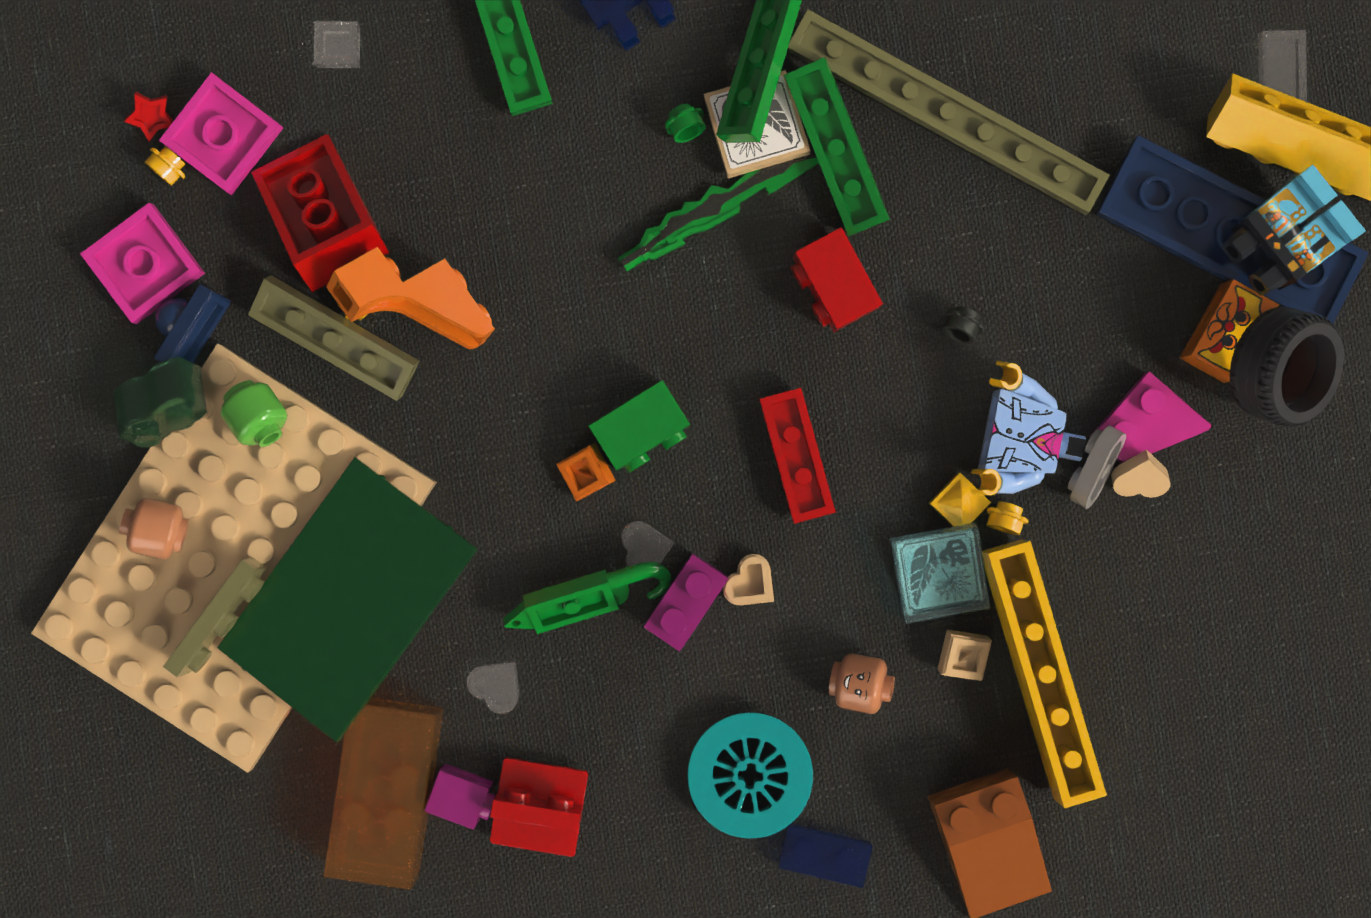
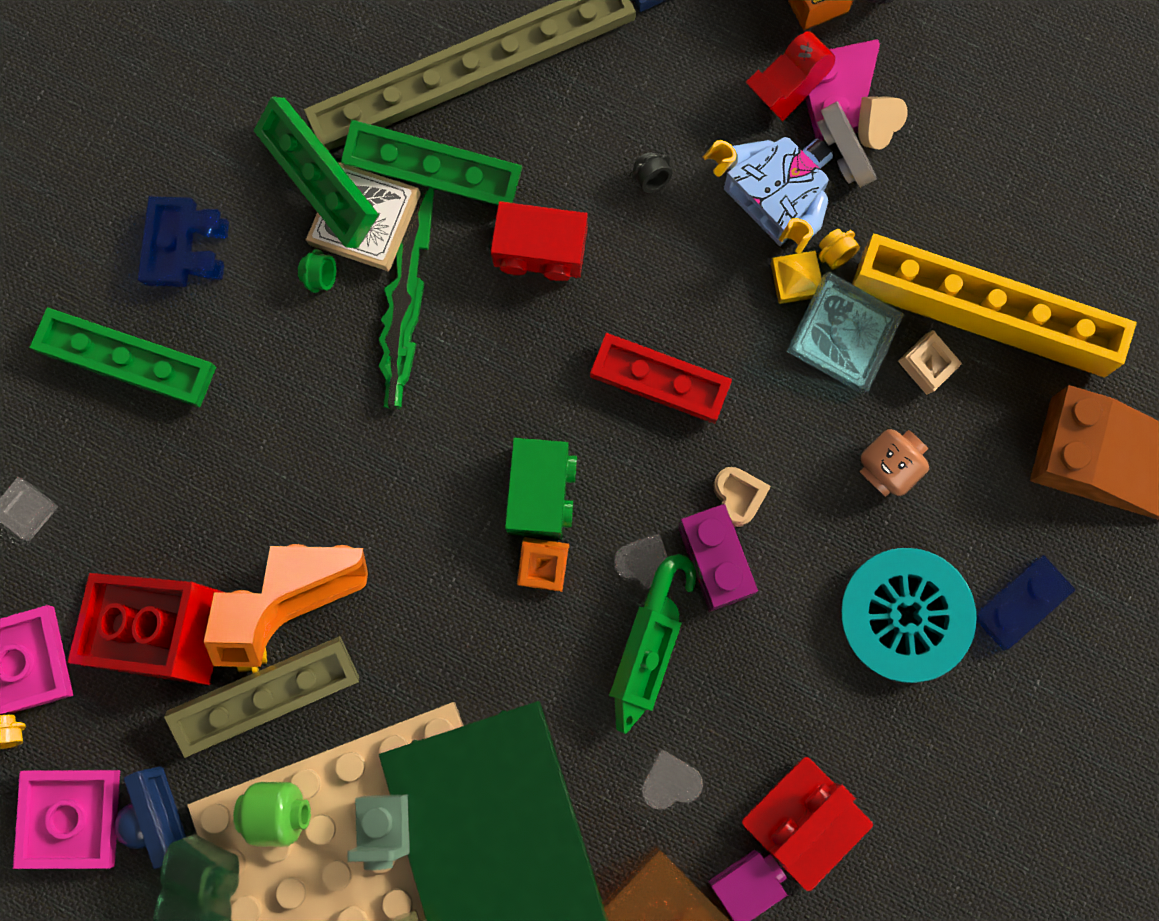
camera: 55 degrees left, 10 degrees down
(300, 502) = (380, 831): none -> sand green bracket
(1124, 380) = (793, 74): none -> red leg

